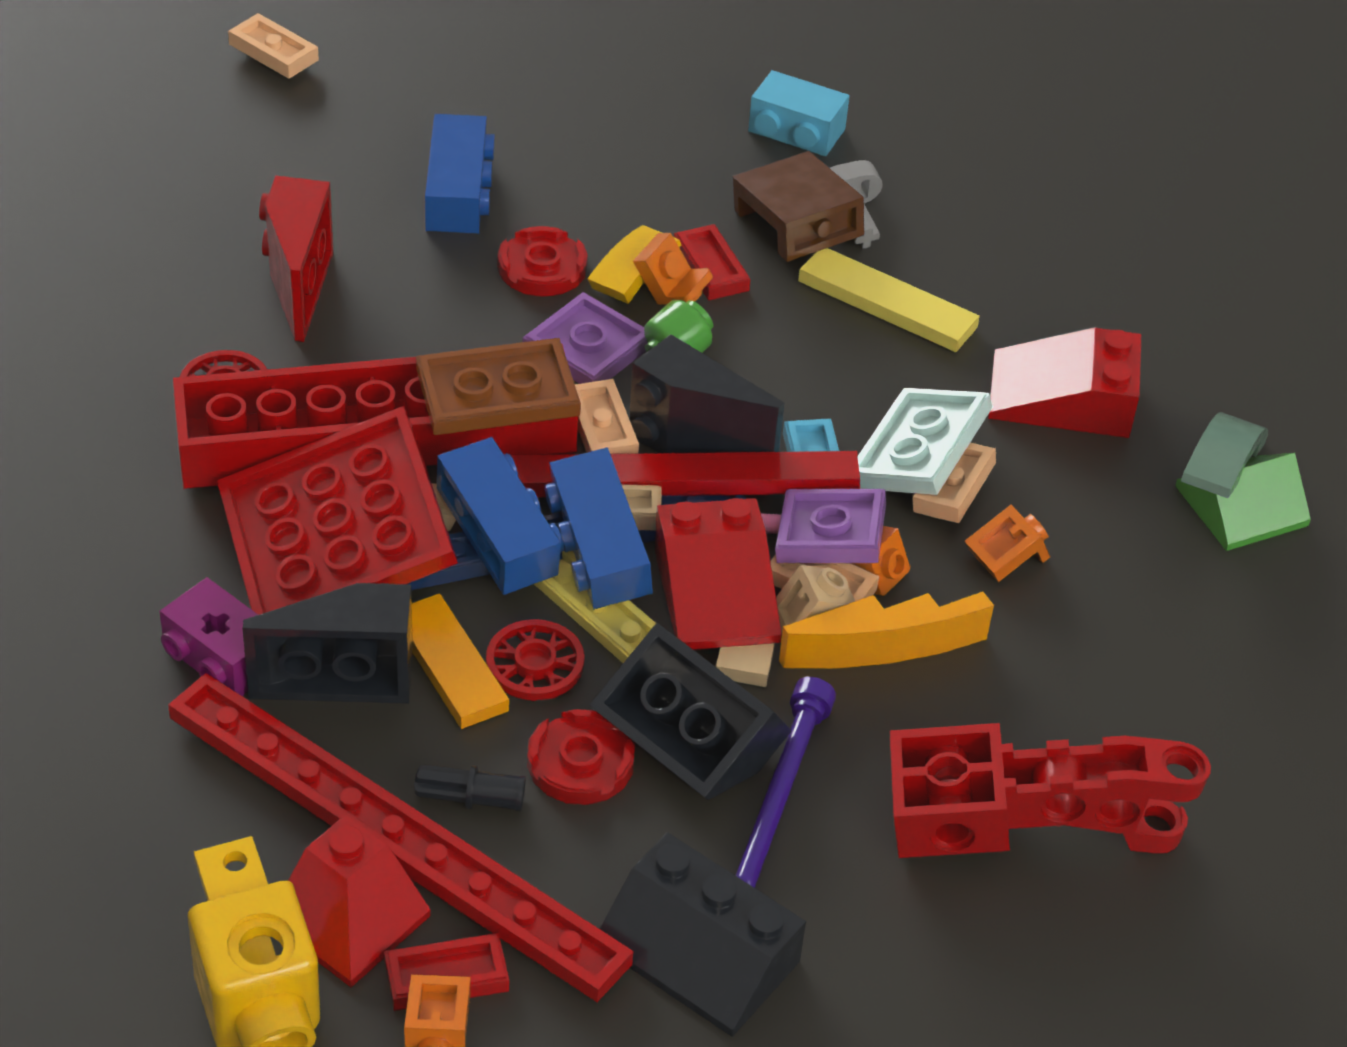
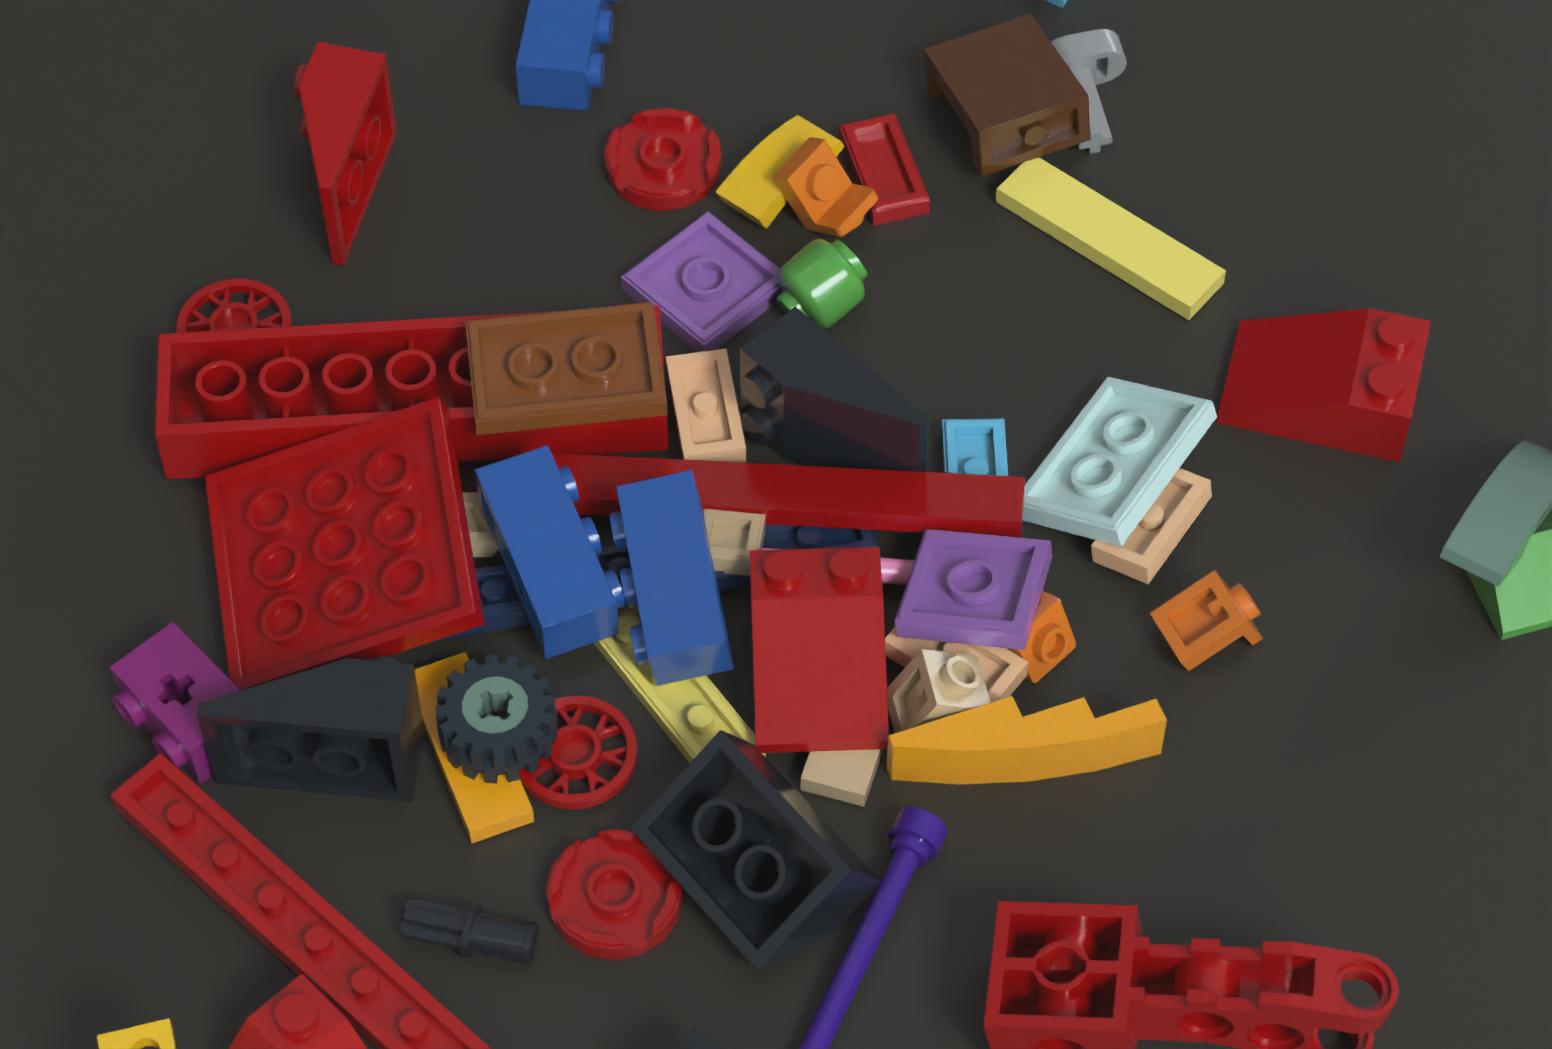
camera: 10 degrees right, 10 degrees up
(474, 633) = (493, 742): none -> black wheel

